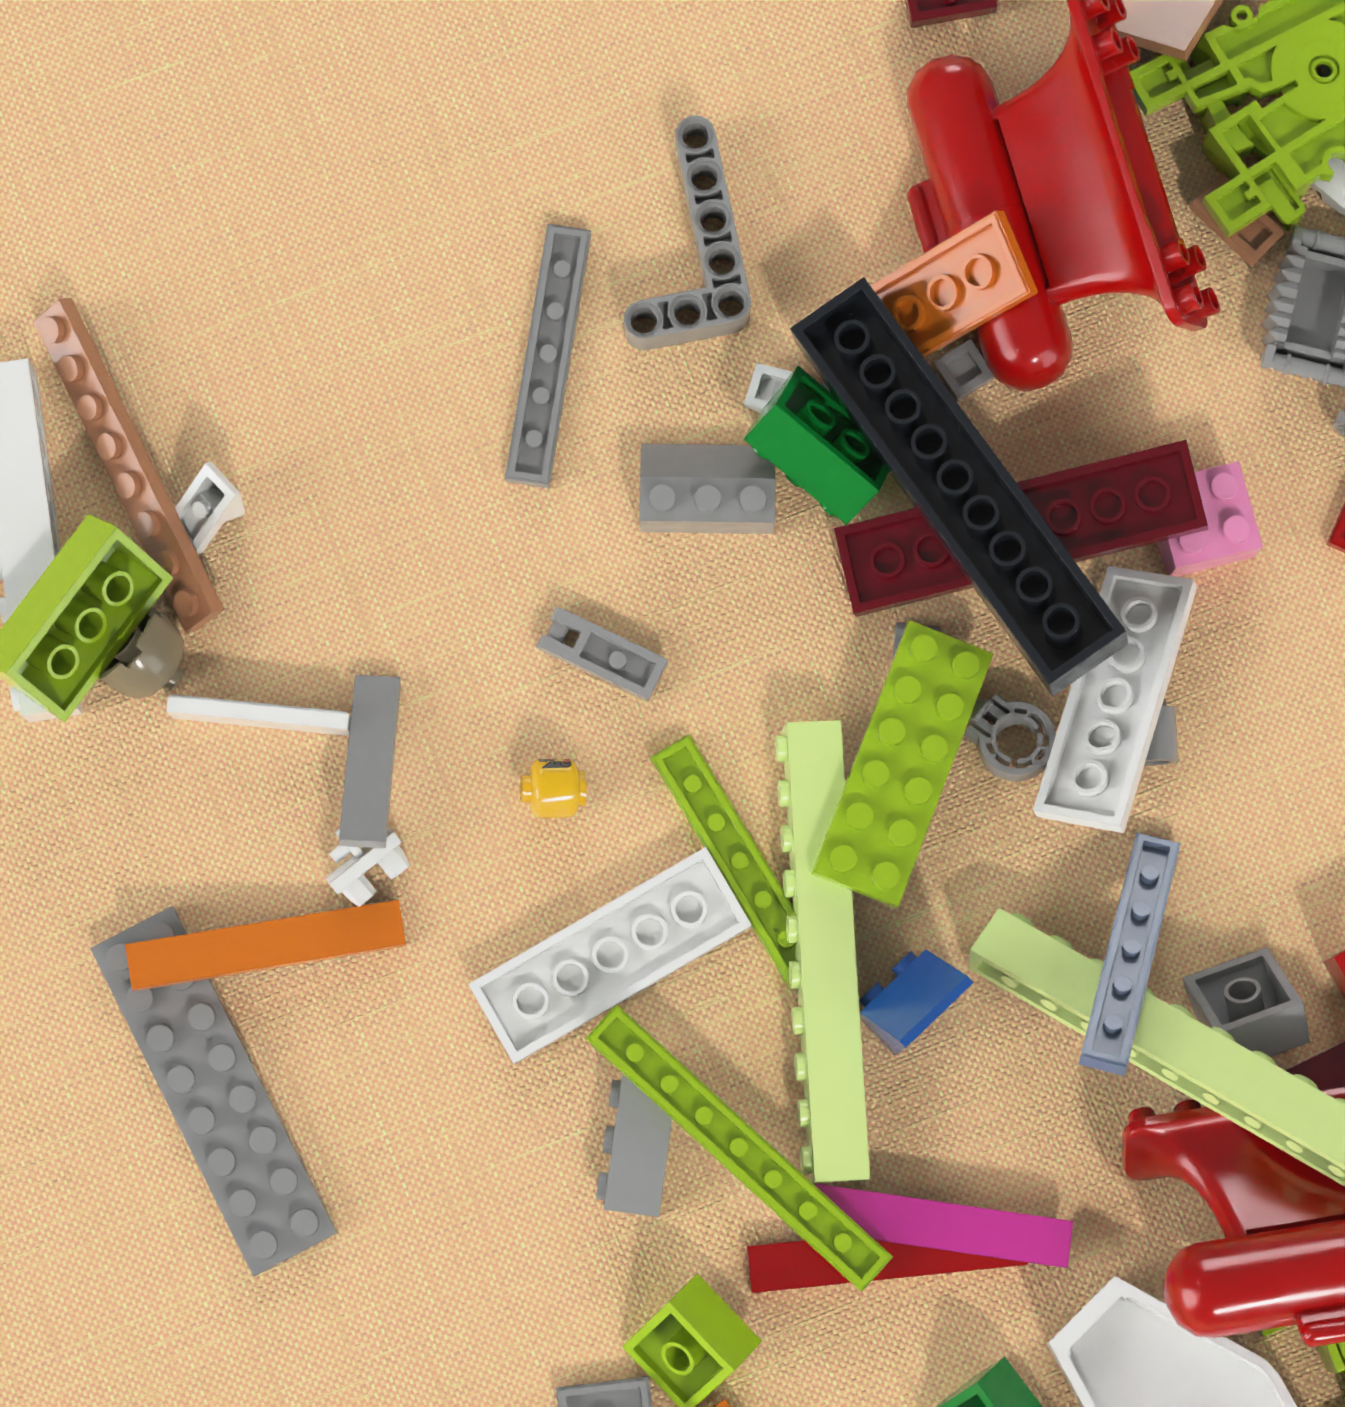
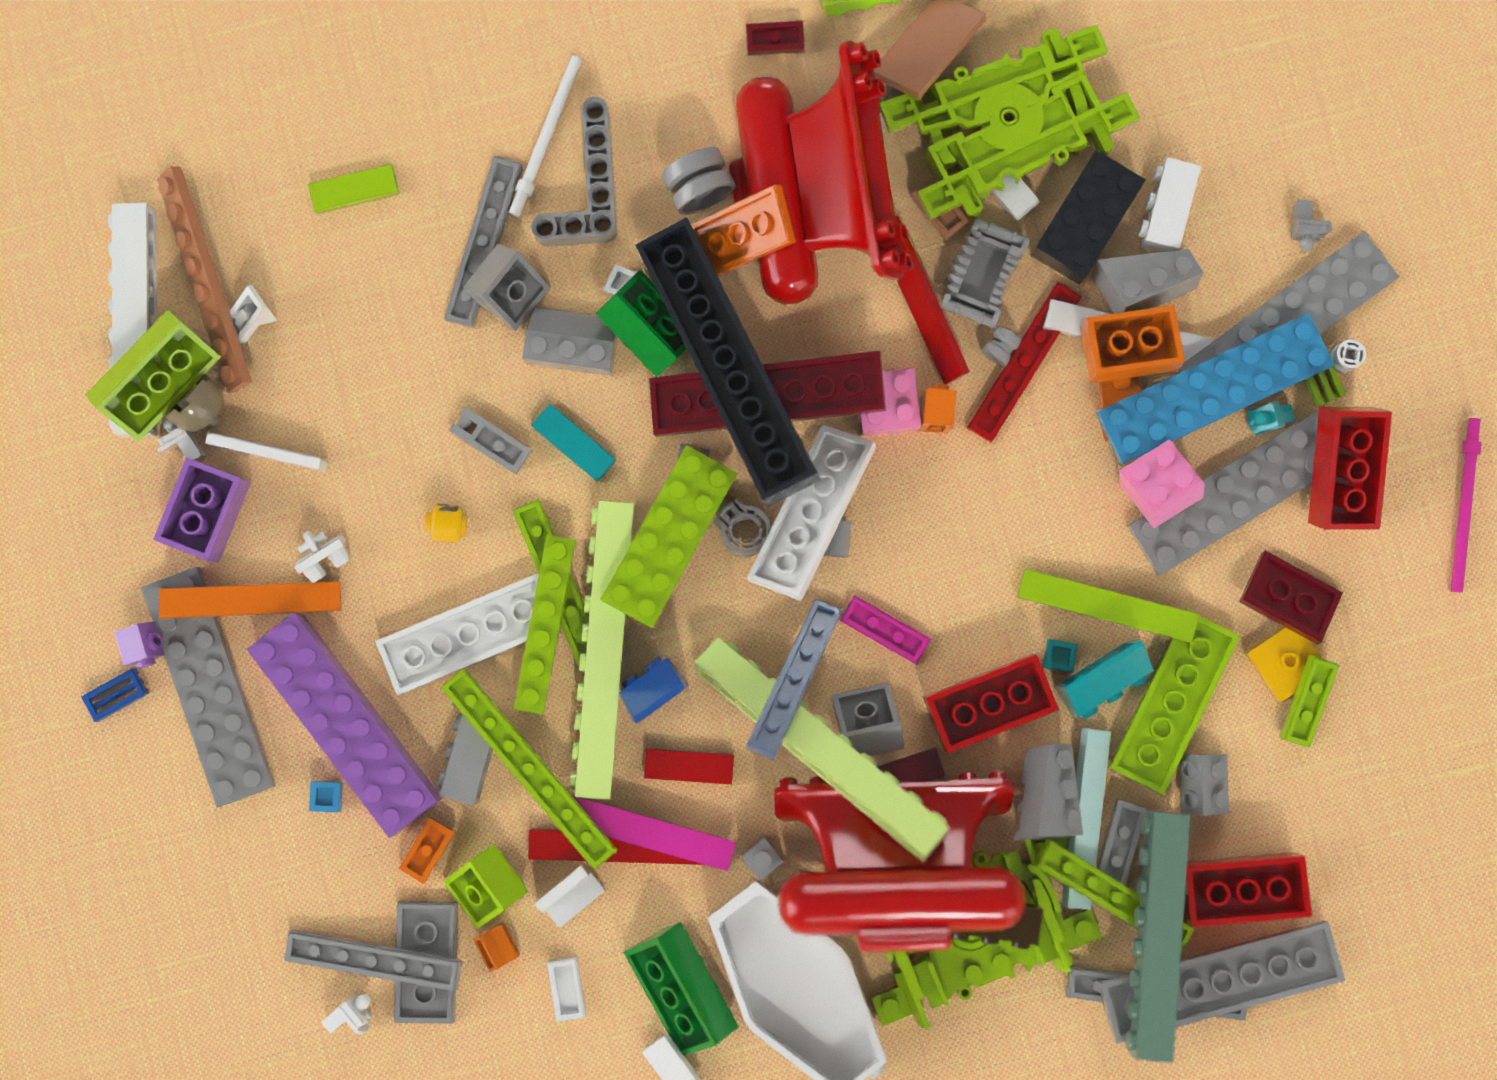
camera: 15 degrees right, 5 degrees up
(101, 1099) = (137, 683): none -> blue tile
(103, 1036) = (140, 644): none -> brick
(121, 708) = (182, 438): none -> white piece
(174, 815) = (202, 510): none -> medium lavender brick
(338, 299) = (353, 188): none -> lime tile
(370, 761) = (331, 491): light grey tile -> none
(422, 1236) = (326, 796): none -> dark azure plate
(438, 1119) = (344, 724): none -> medium lavender brick
(592, 1299) = (427, 850): none -> orange plate
(597, 416) = (507, 286): none -> light grey slope
(601, 263) = (525, 185): none -> white bar
(729, 924) = (545, 624): none -> lime plate
(730, 642) = (573, 443): none -> teal tile
(825, 1341) = (570, 895): none -> white panel
(869, 221) = (698, 180): none -> light grey wheel
(963, 370) = (748, 285): light grey tile -> none
(980, 1115) = (689, 766): none -> red tile
(1117, 1240) = (762, 857): none -> light grey brick
(1250, 866) = (885, 630): none -> dark pink tile
(1253, 394) = (931, 320): none -> red tile
(1284, 518) = (937, 409): none -> orange brick

